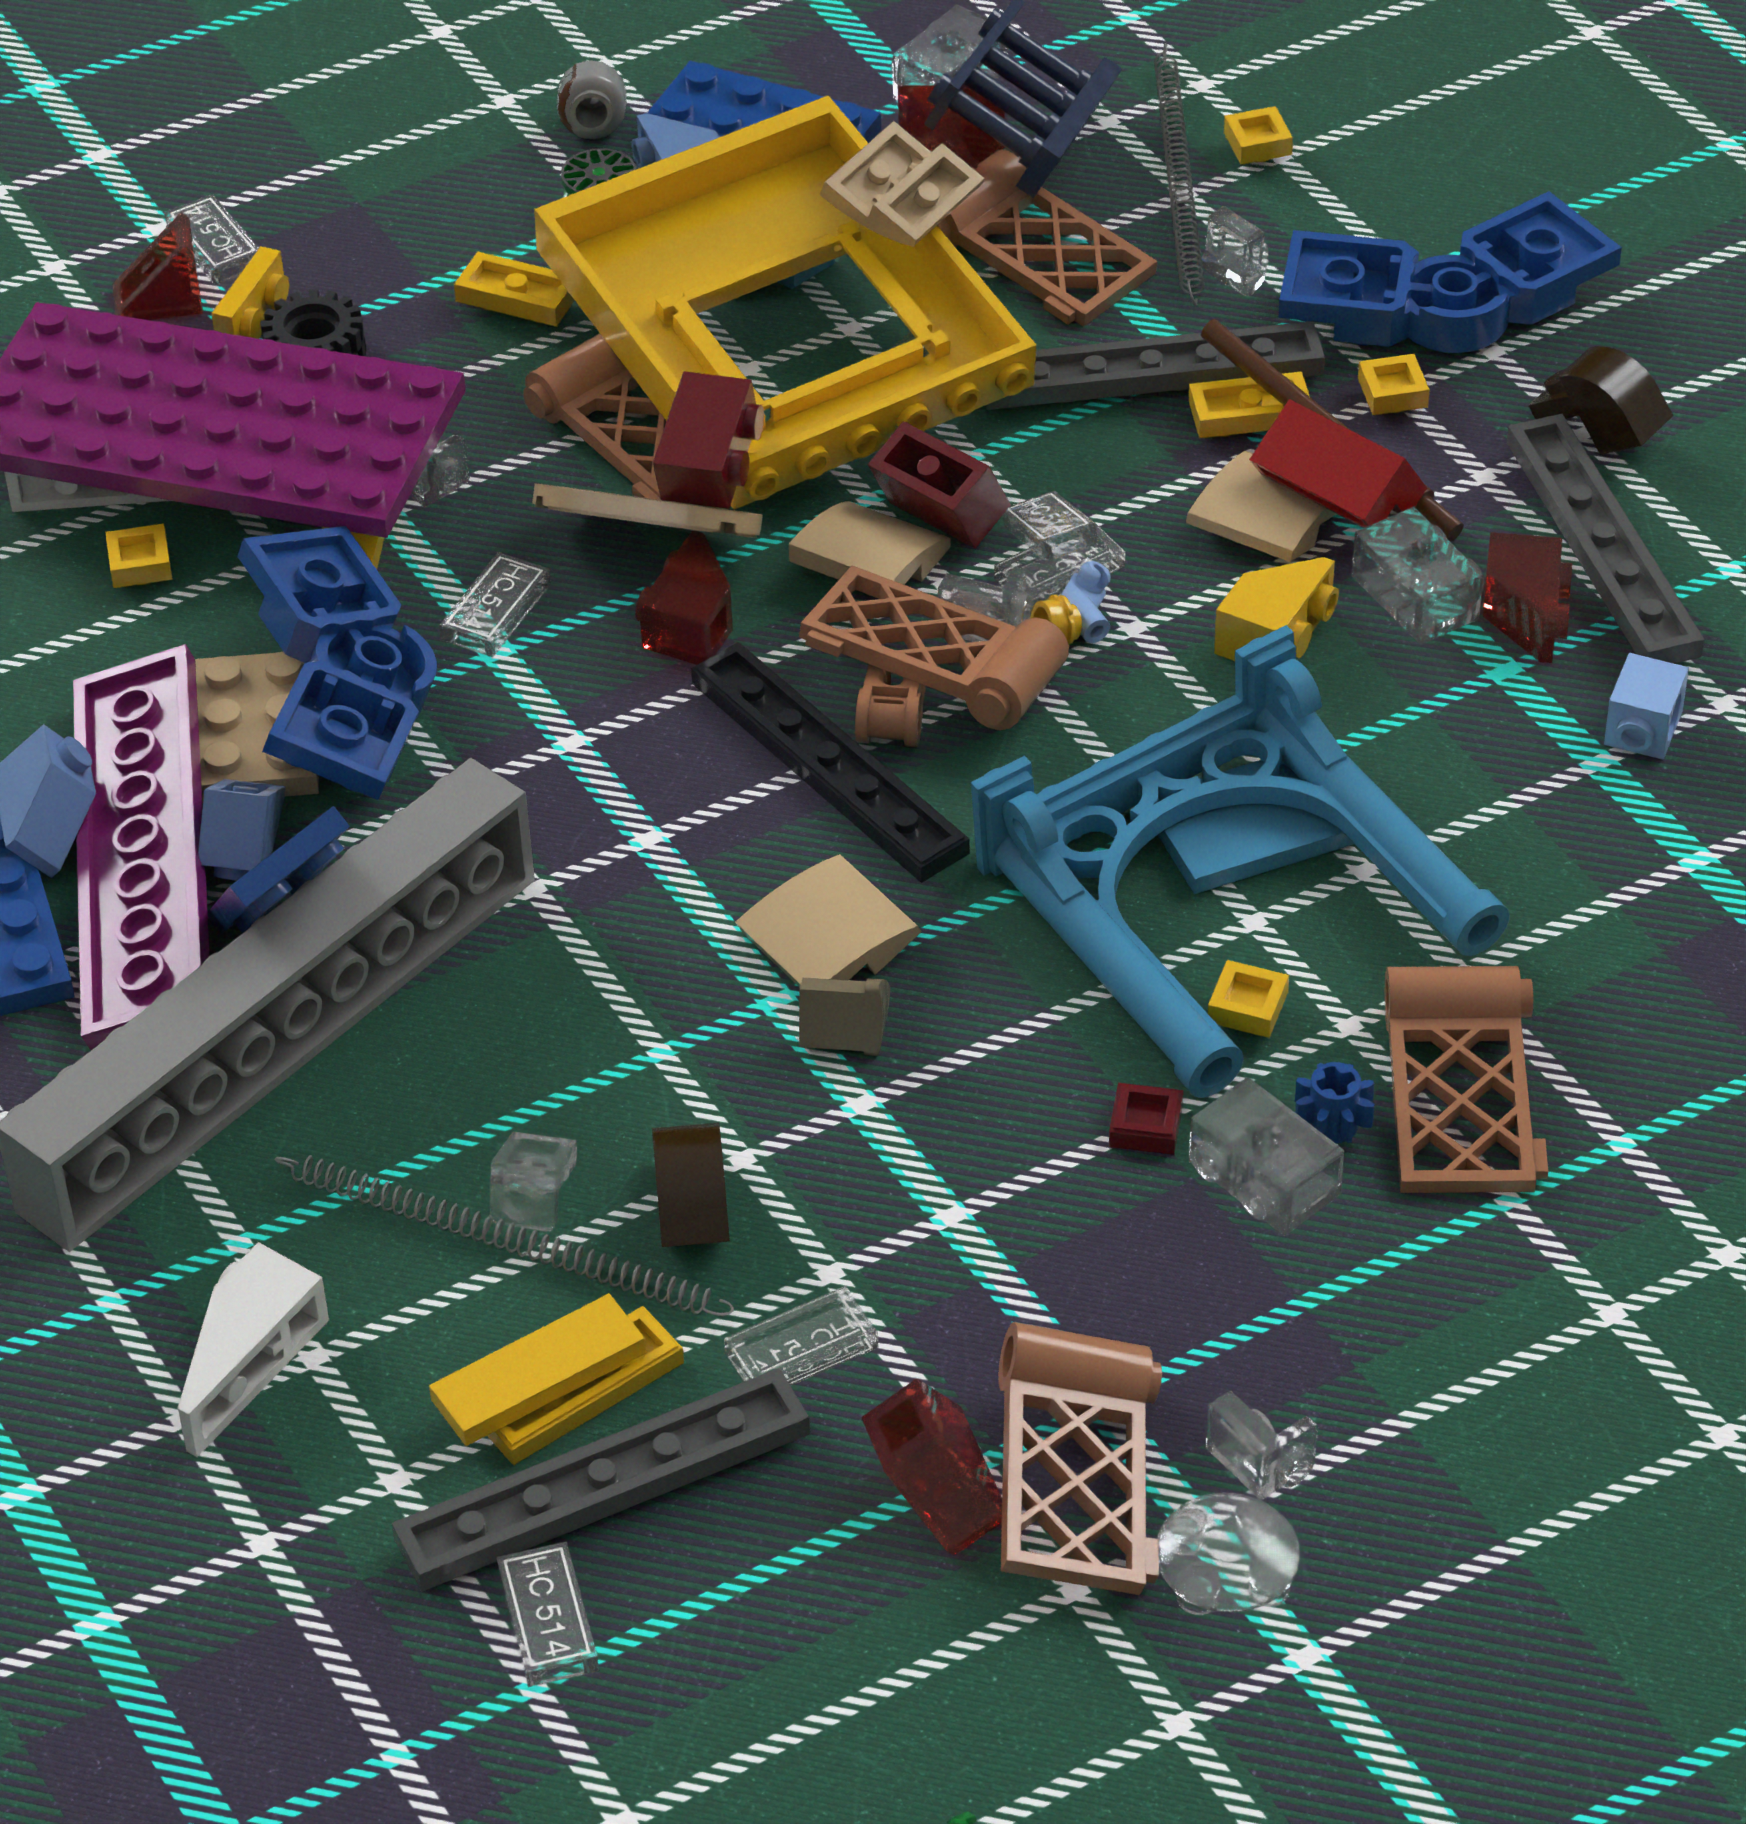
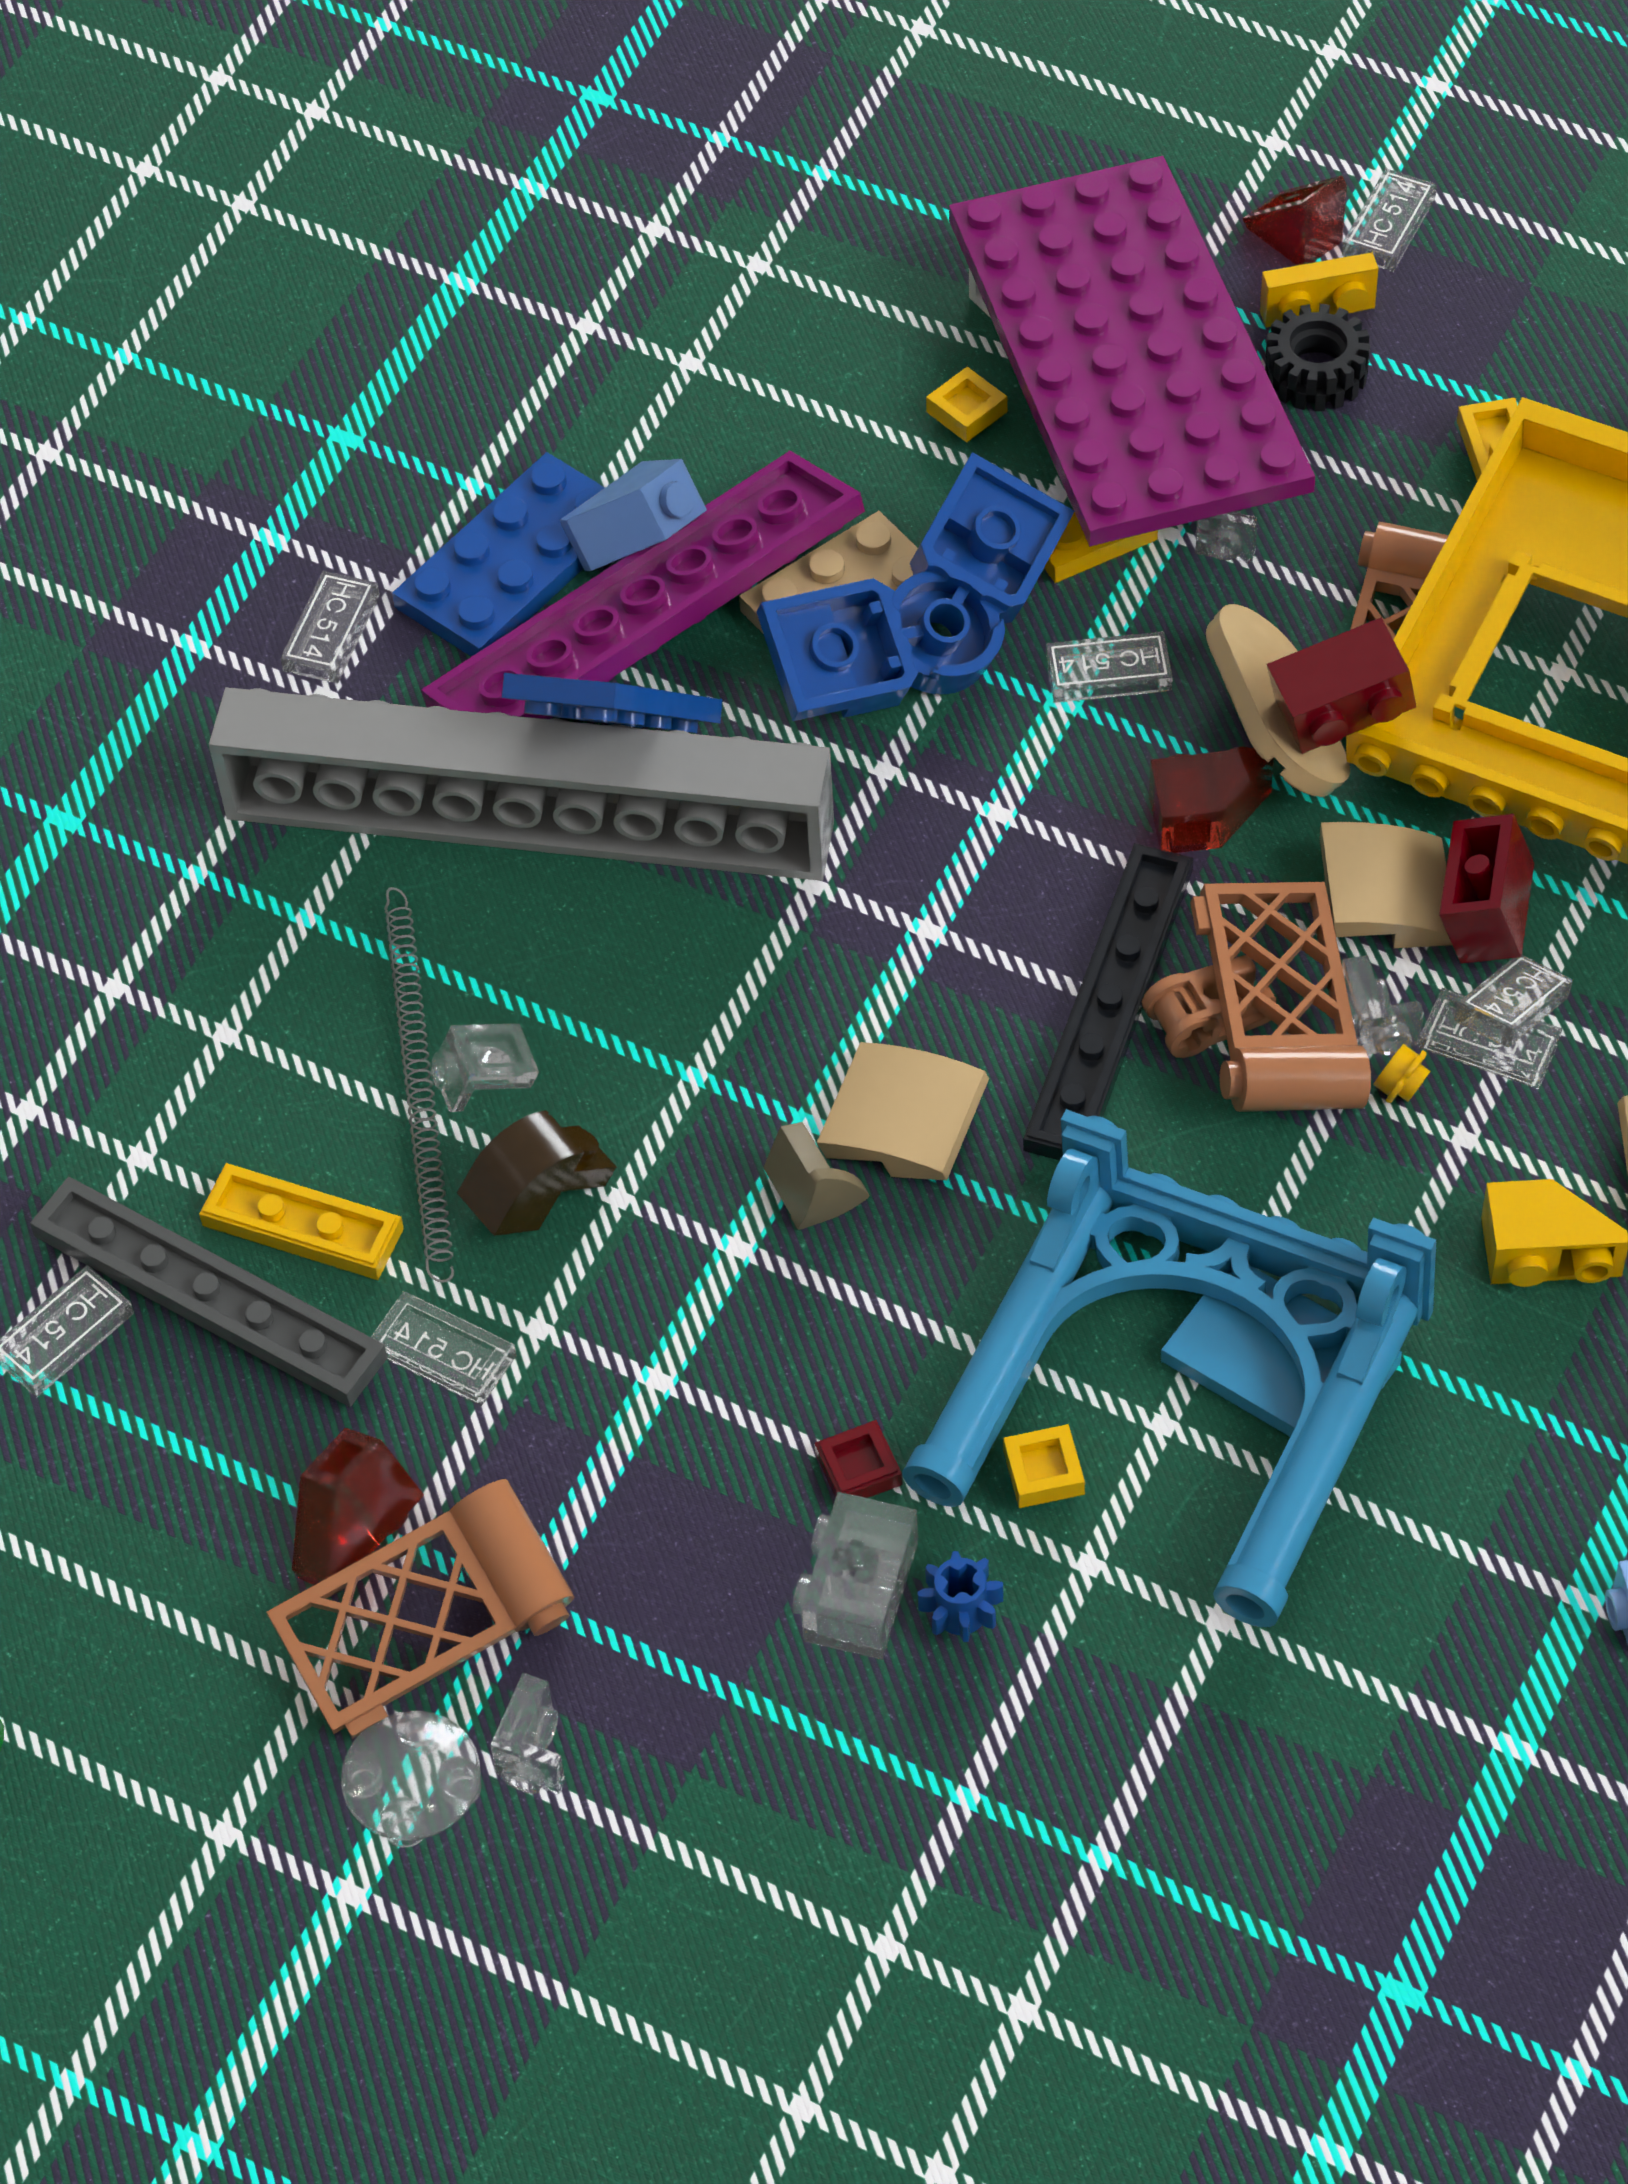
camera: 60 degrees right, 10 degrees up
(239, 825) = (704, 648): medium blue slope -> none
(251, 1331) = (192, 976): white slope -> none
(537, 1369) = (277, 1182): yellow tile -> none
(1087, 592) = (1453, 1078): light blue arm -> none
(1455, 1012) = (1152, 1644): nougat piece -> none

